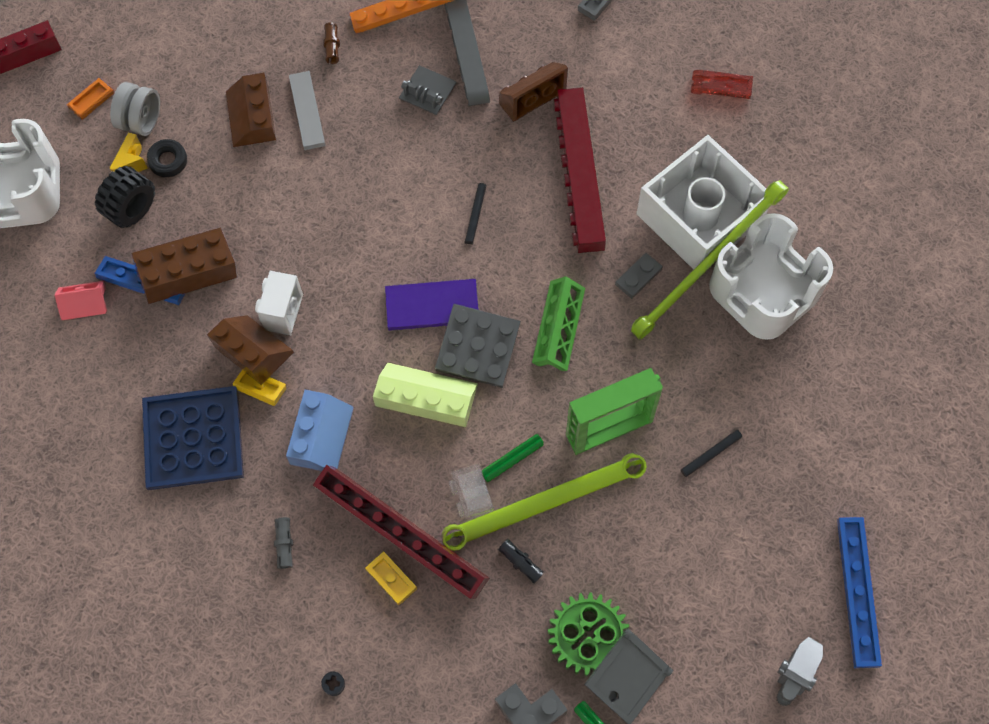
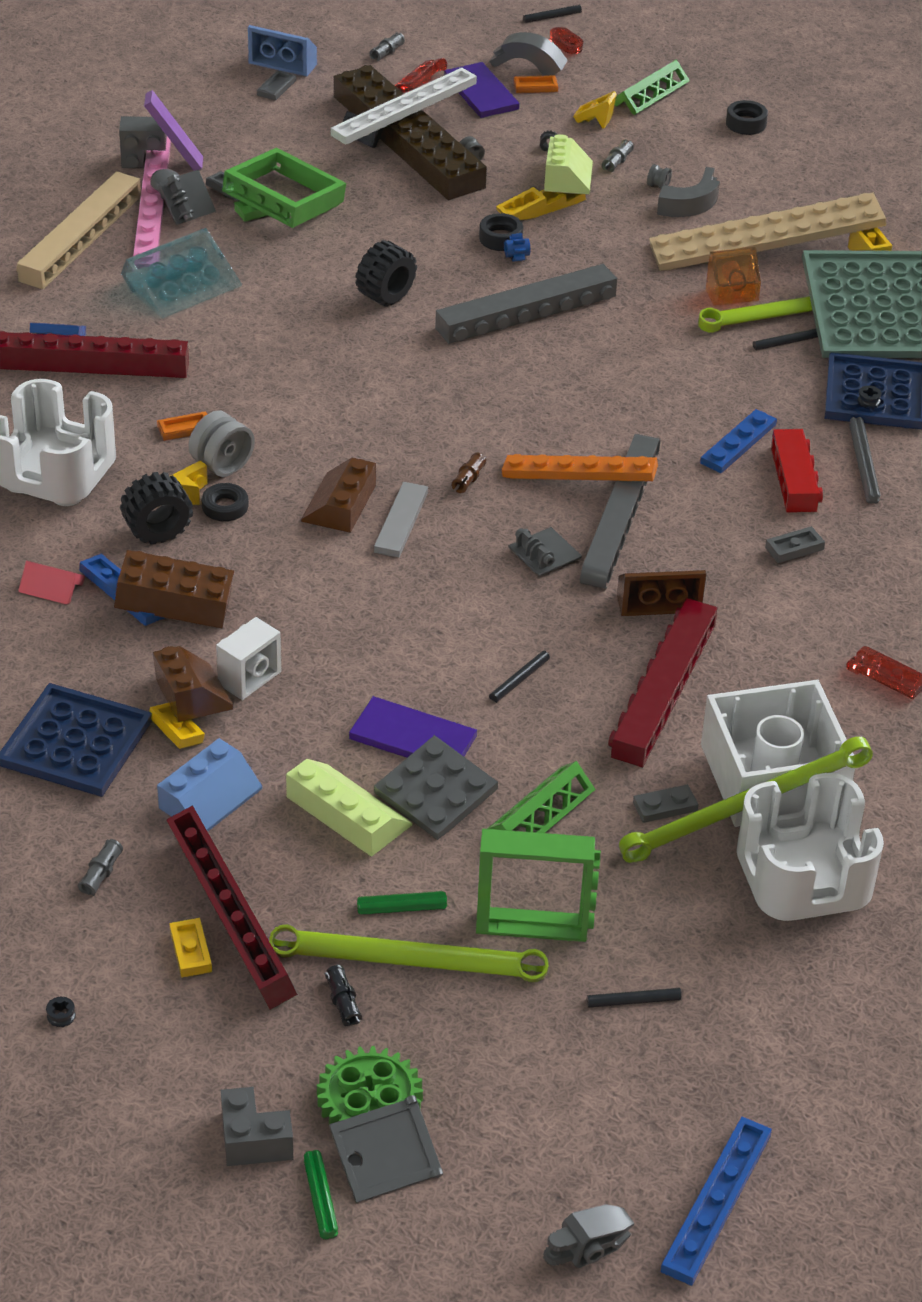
camera: 25 degrees right, 25 degrees down
(471, 492) = (333, 906): clear brick -> none

